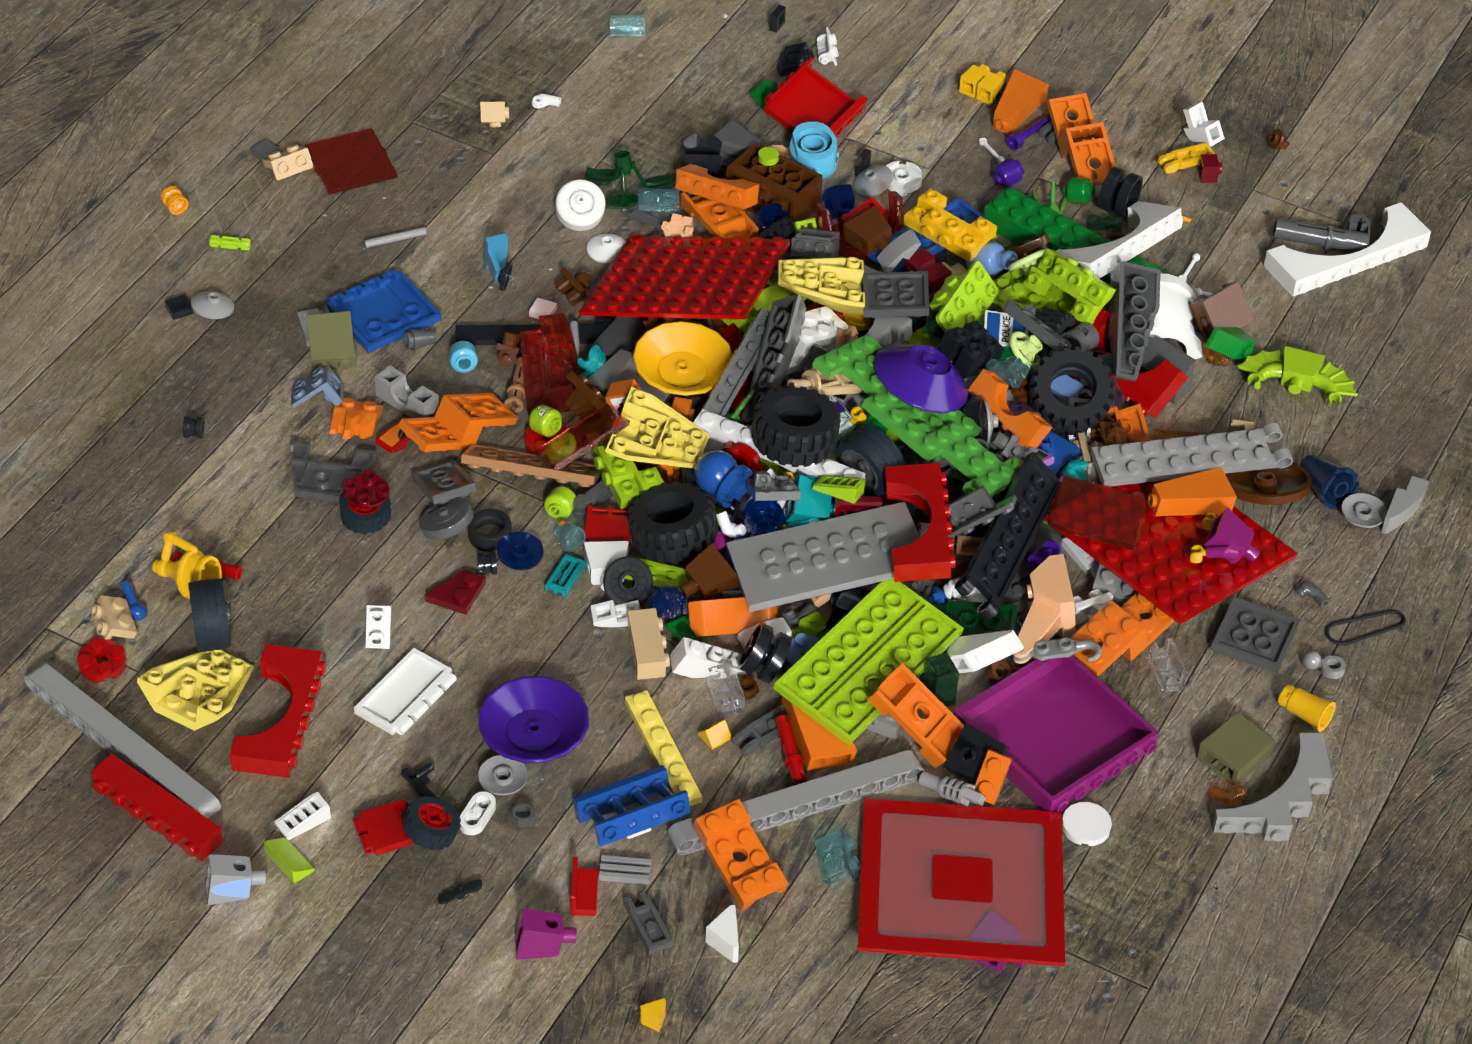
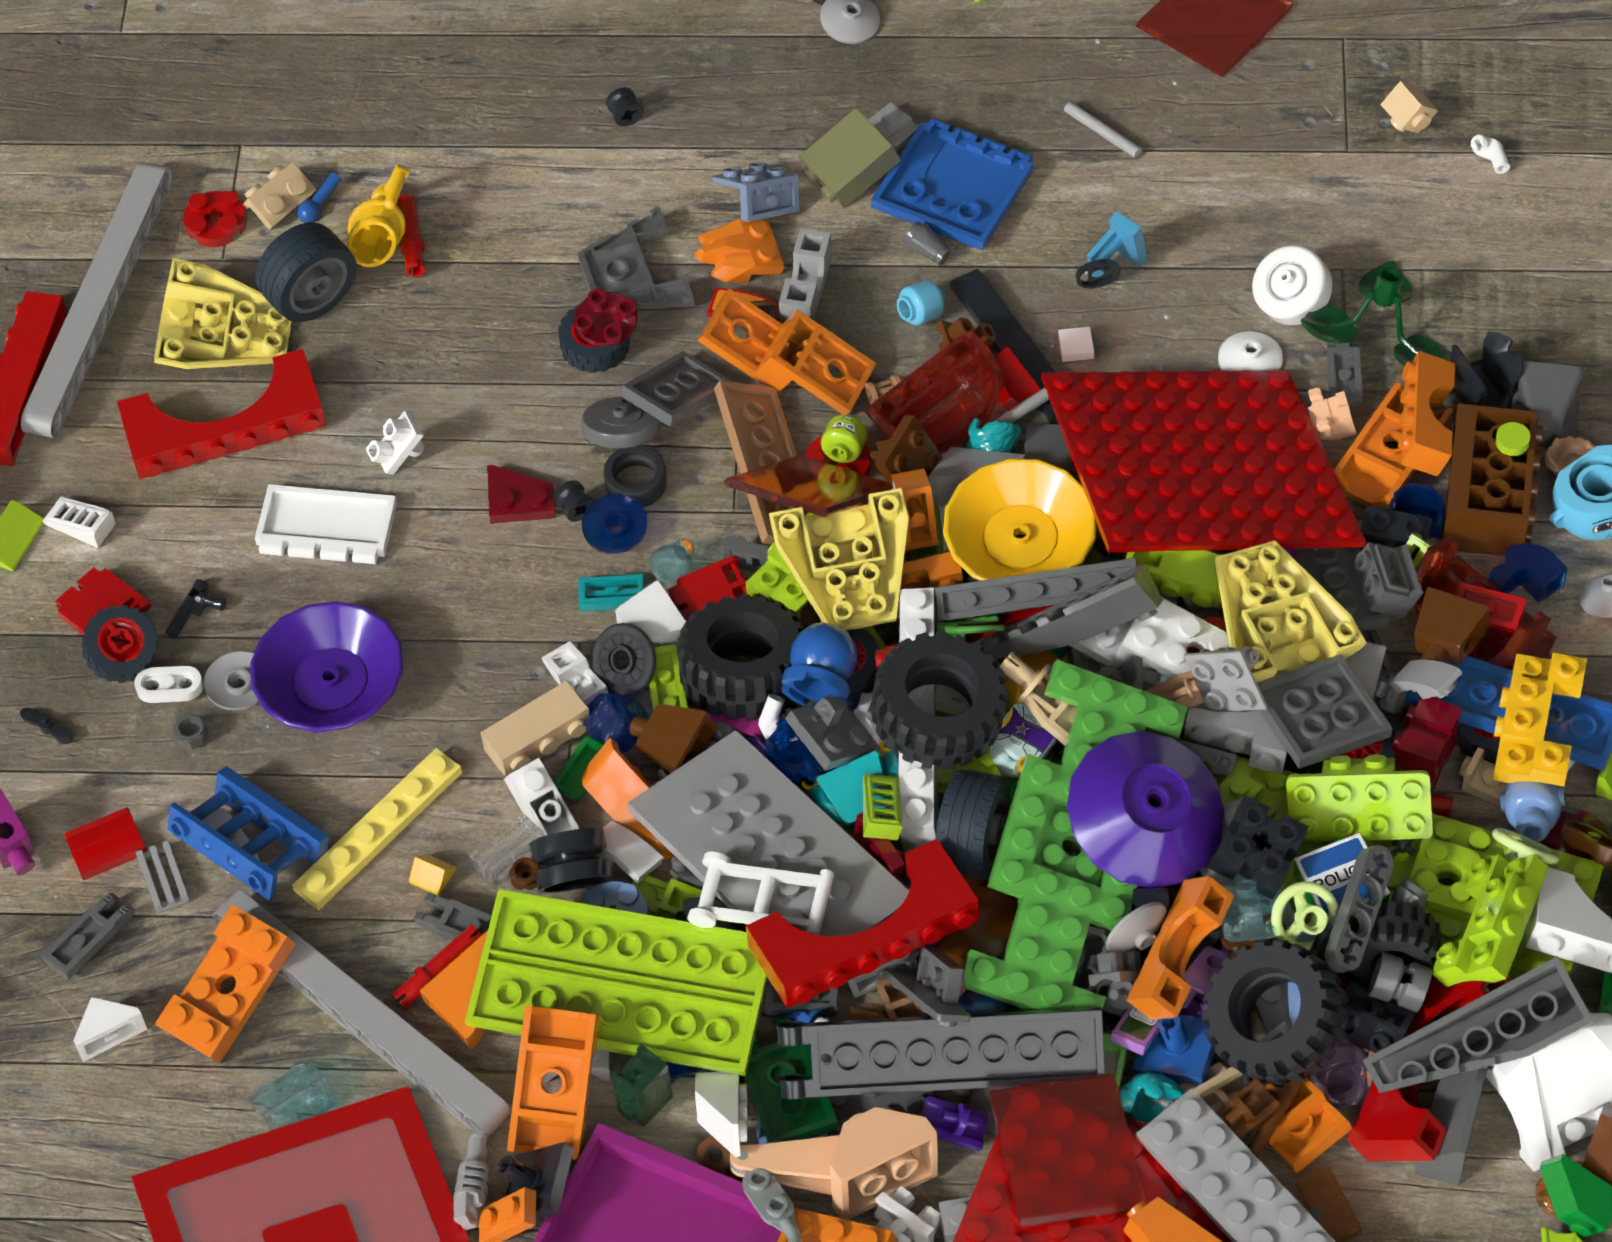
camera: 70 degrees right, 10 degrees up
(560, 503) = (723, 522): lime head -> none
(577, 285) = (1139, 353): reddish brown hips -> none
(658, 200) = (1368, 364): clear light blue bracket -> none
(859, 311) = (1227, 678): none -> light grey hinge
(861, 592) = (720, 864): none -> white piece

